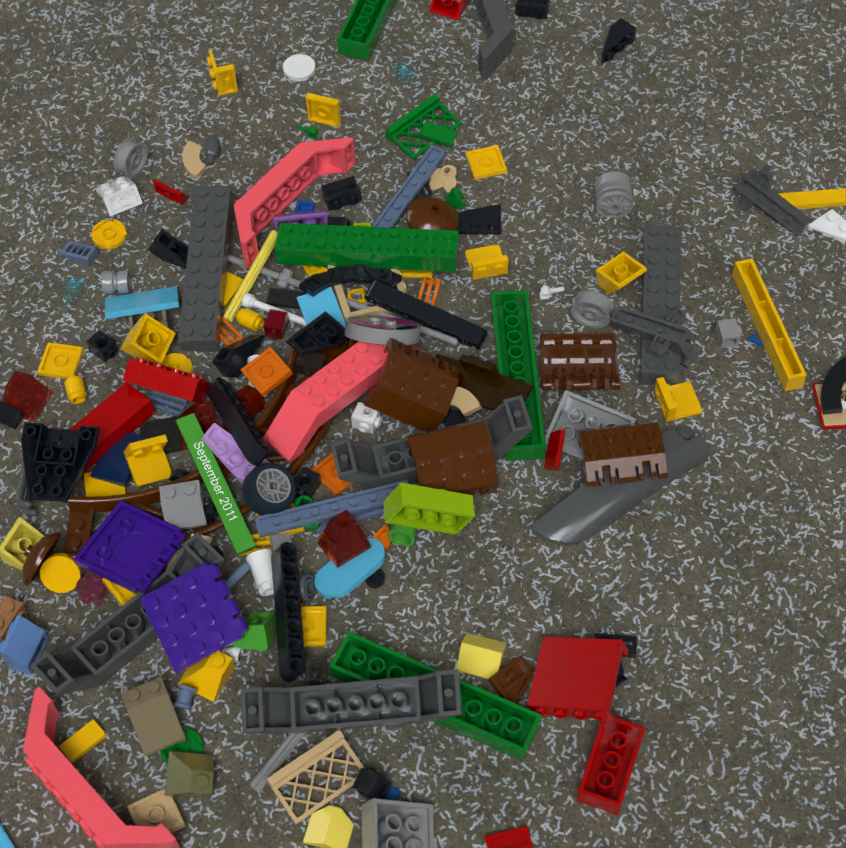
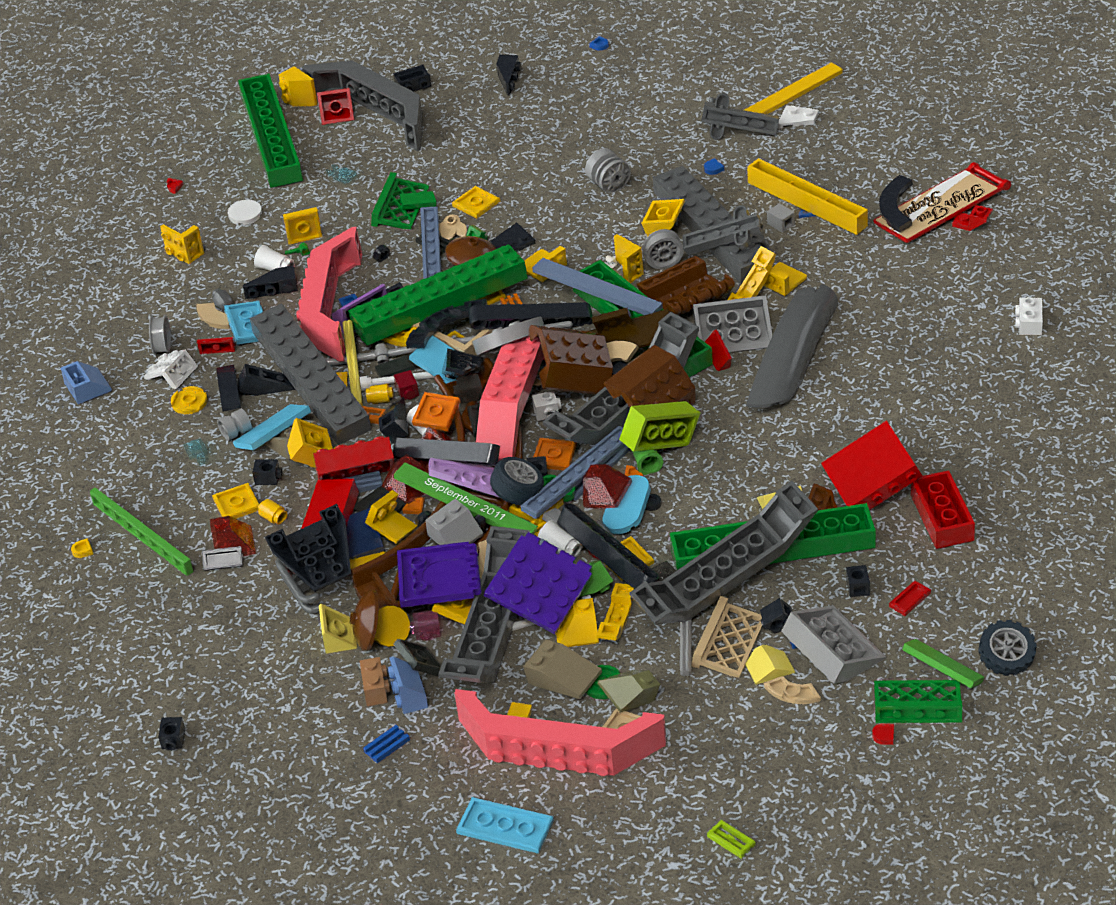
camera: 30 degrees left, 15 degrees down
(46, 169) = (84, 381): none -> medium blue slope
(55, 623) = (418, 657): none -> pearl dark grey tile
(92, 253) = (180, 424): sand blue slope -> none
(137, 247) = (228, 388): none -> black slope
(184, 456) = (414, 507): none -> orange tile
(184, 697) = (573, 642): sand blue bush -> none
(211, 173) = (239, 320): none -> medium azure tile
(230, 698) = (617, 613): none -> yellow slope
(259, 153) = (274, 282): none -> black slope
(269, 10) = (174, 185): none -> red tile
(276, 130) = (269, 259): none -> white plant
(341, 193) = (373, 275): black hinge -> none
(366, 172) = (381, 253): none -> black tile
(471, 800) = (857, 581): none -> black brick
(499, 321) = (596, 287): none -> sand blue tile
(555, 307) = (630, 258): none -> yellow bracket
(622, 449) = (779, 311): reddish brown slope -> none
(643, 393) = (757, 276): none -> yellow slope
(714, 240) = (713, 167): none -> blue tile
(720, 50) = (599, 44): none -> blue tile

